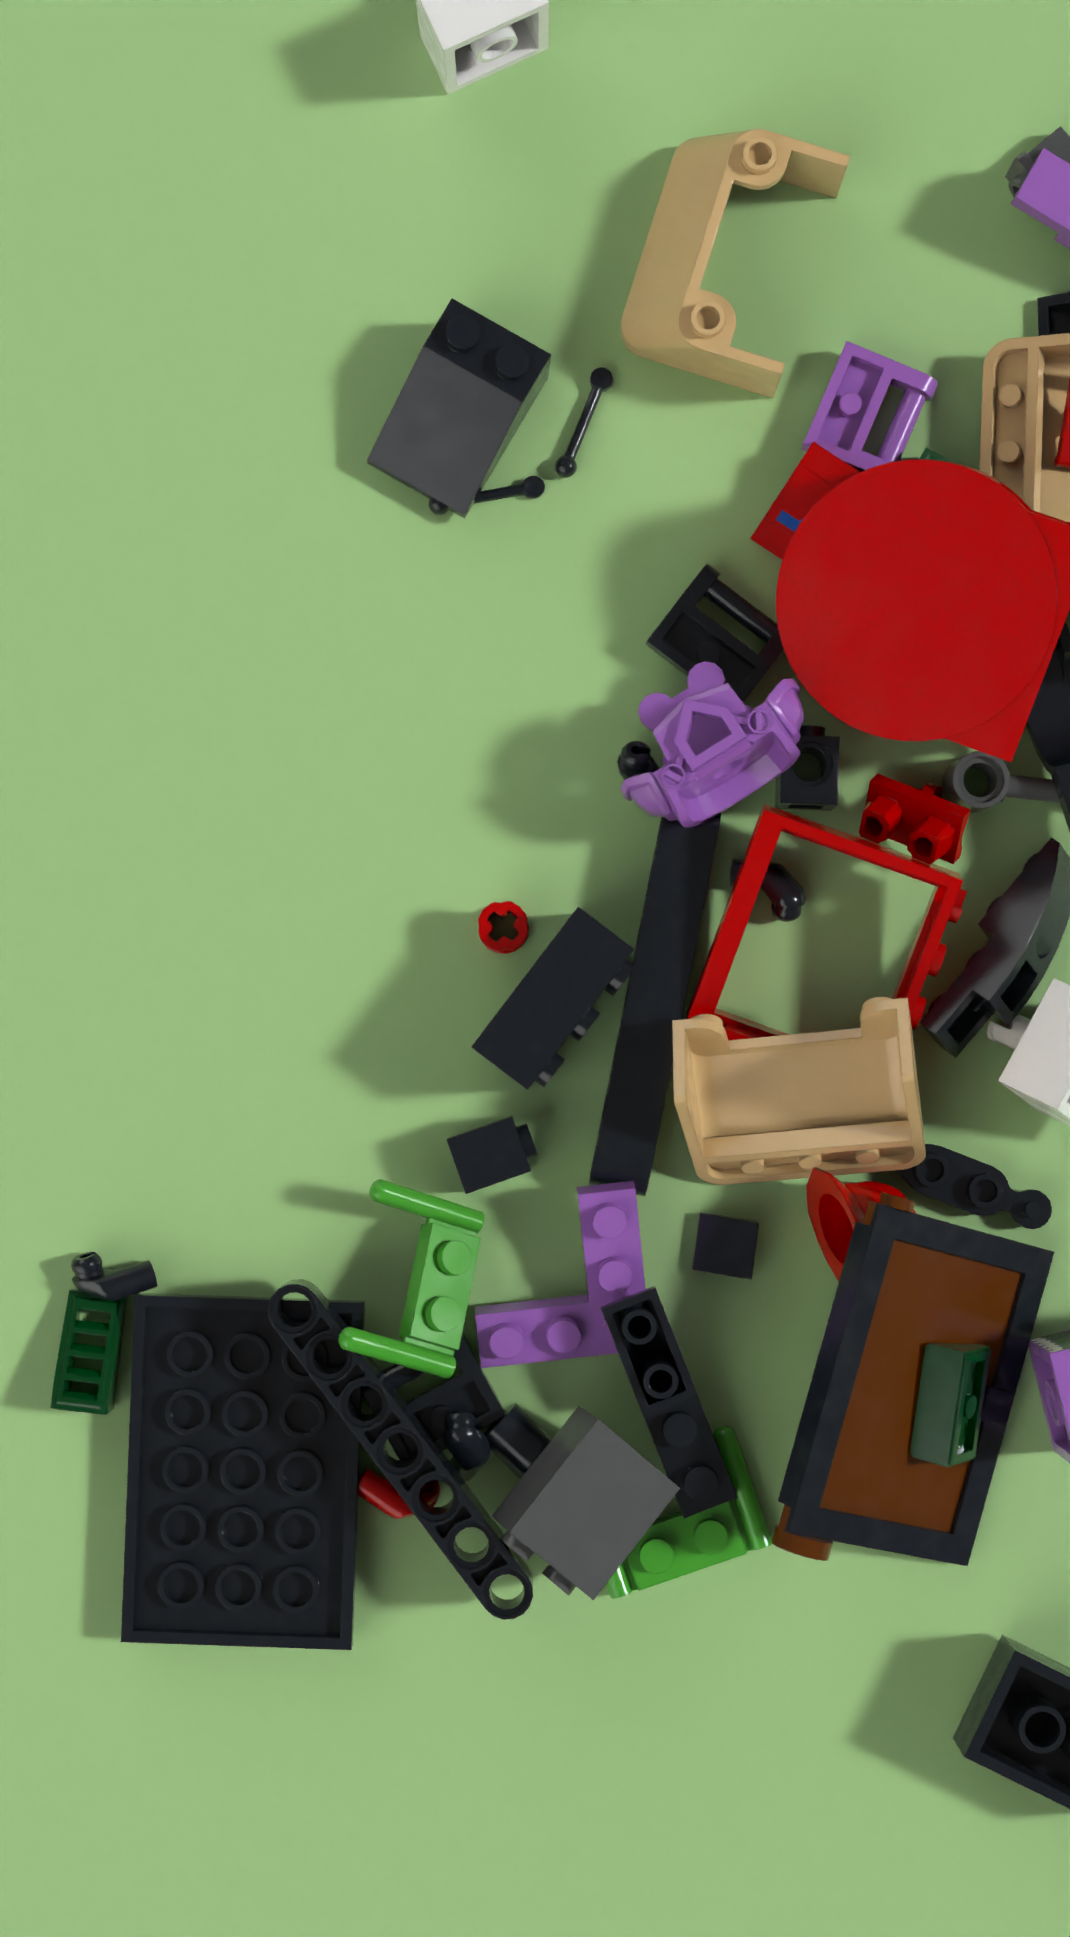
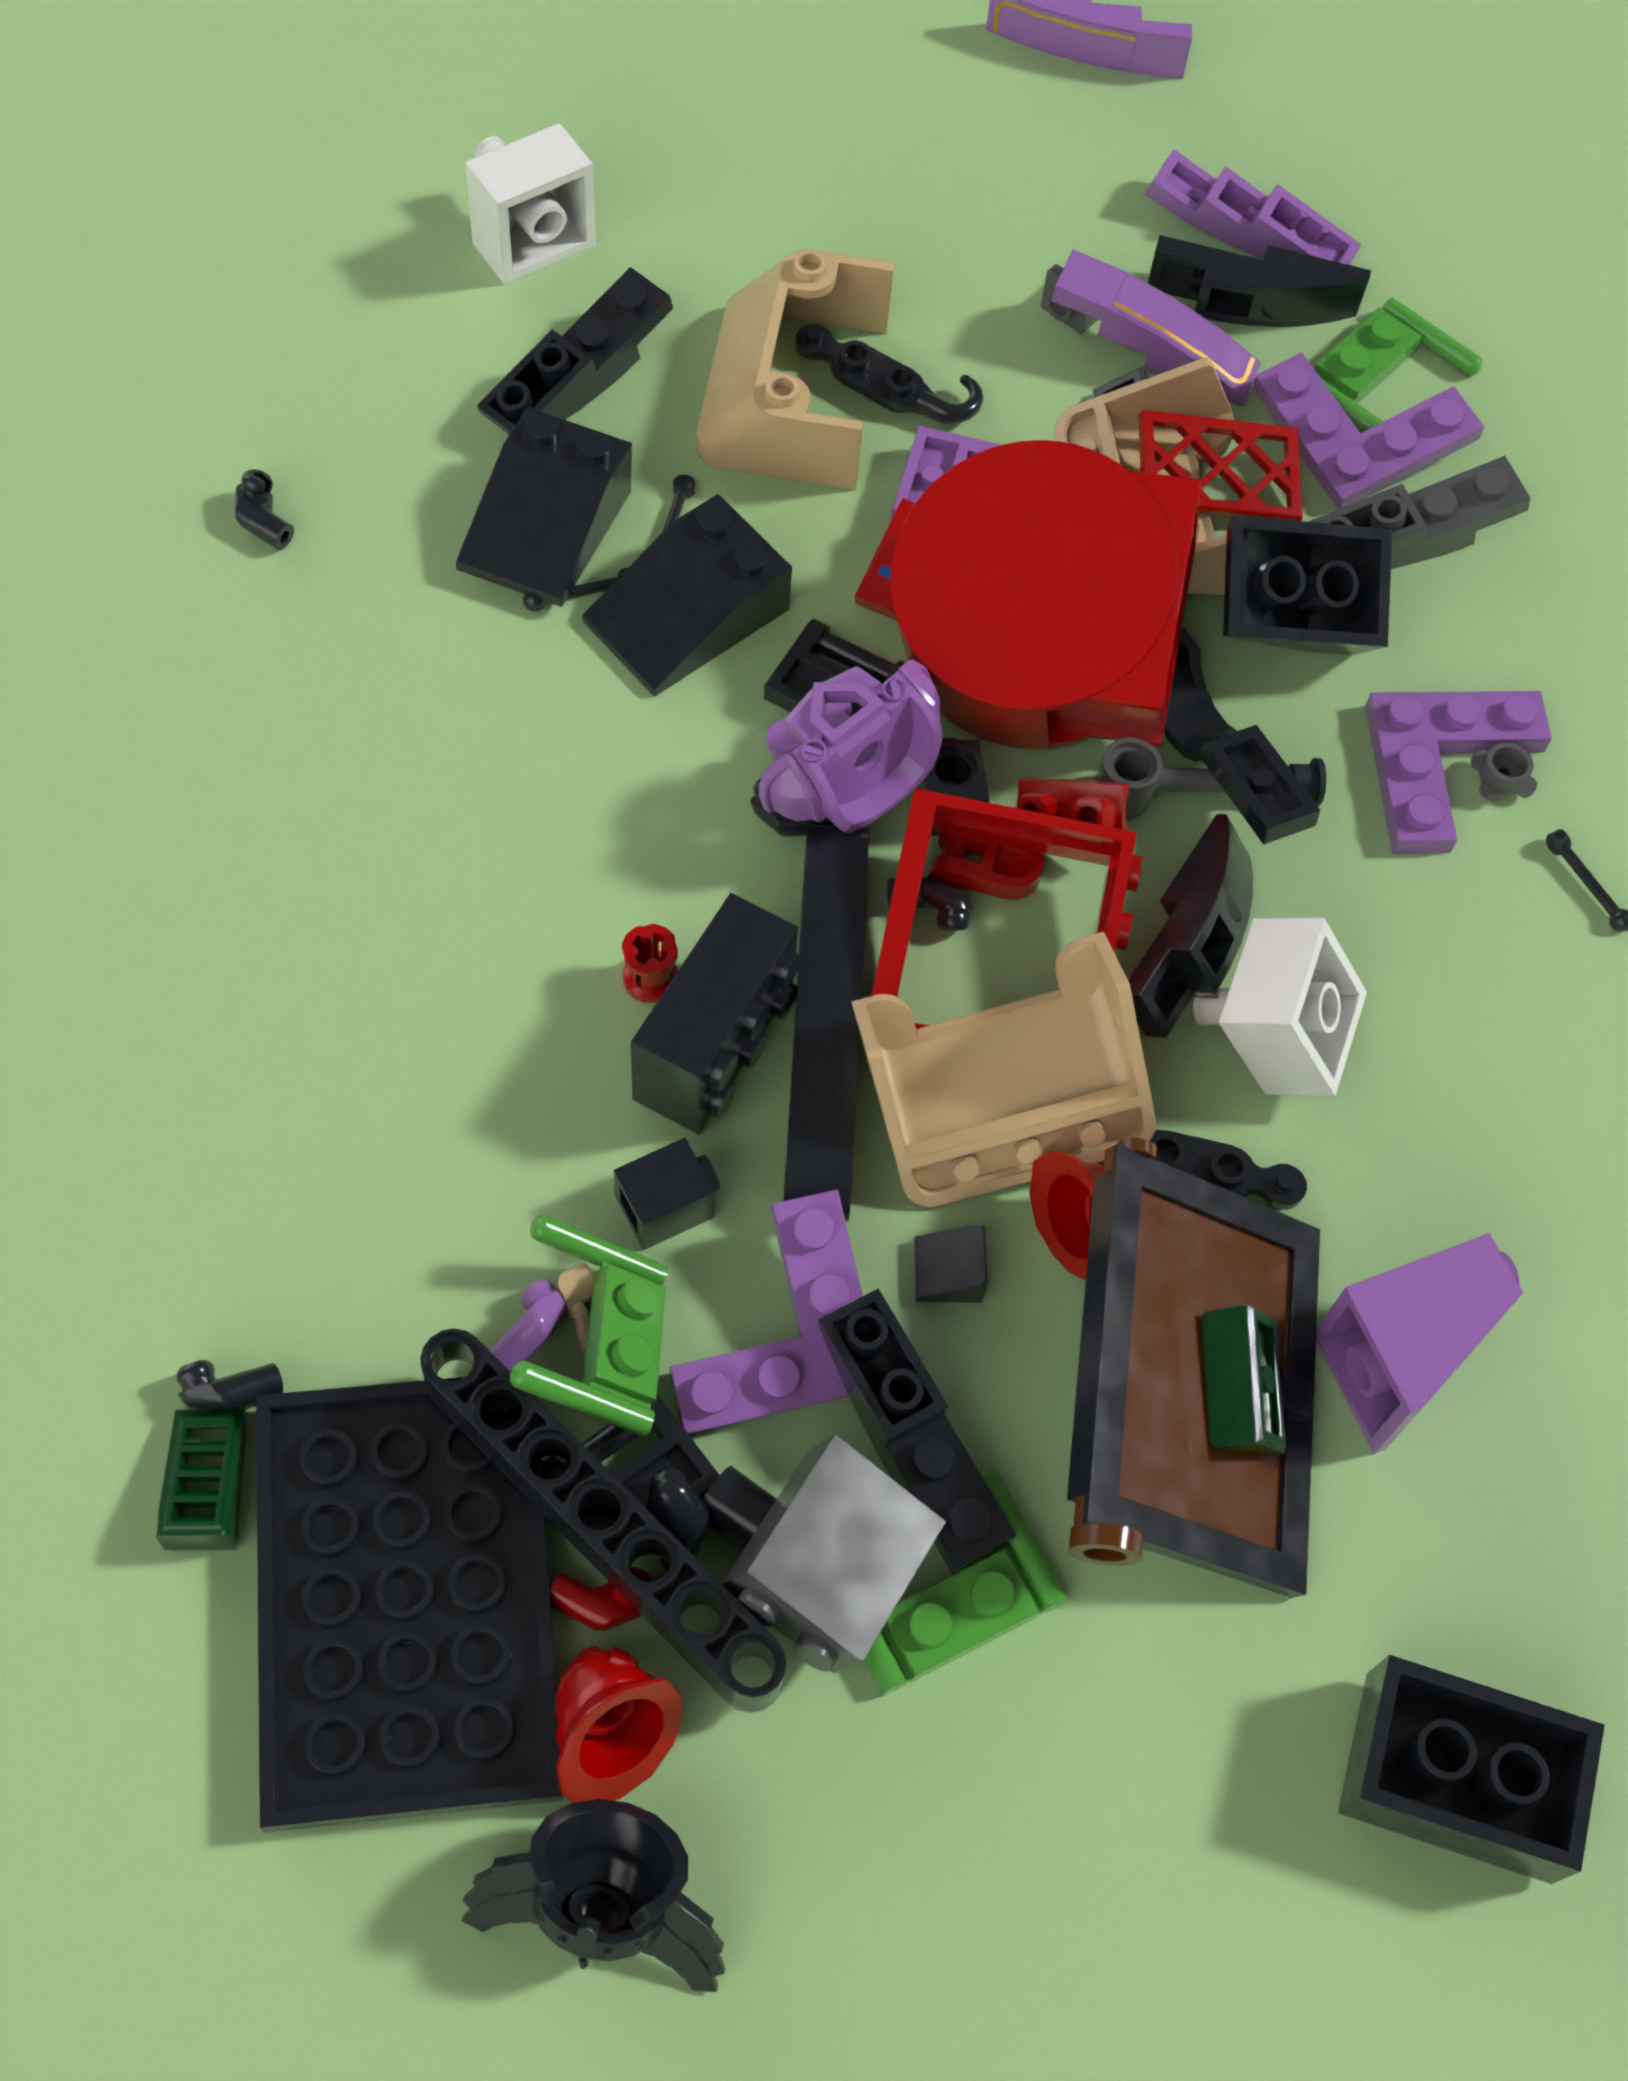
camera: 15 degrees left, 25 degrees down
(177, 371) = (255, 508): none -> black arm
(366, 1262) = (543, 1314): none -> medium lavender arm
(374, 1729) = (604, 1889): none -> black helmet
(391, 1597) = (612, 1724): none -> red piece
(403, 1228) = (577, 1289): none -> tan hand
(512, 221) = (586, 360): none -> black slope
(588, 526) = (691, 596): none -> black slope
(822, 266) = (884, 378): none -> black piece
(832, 868) = (1003, 872): none -> red plate

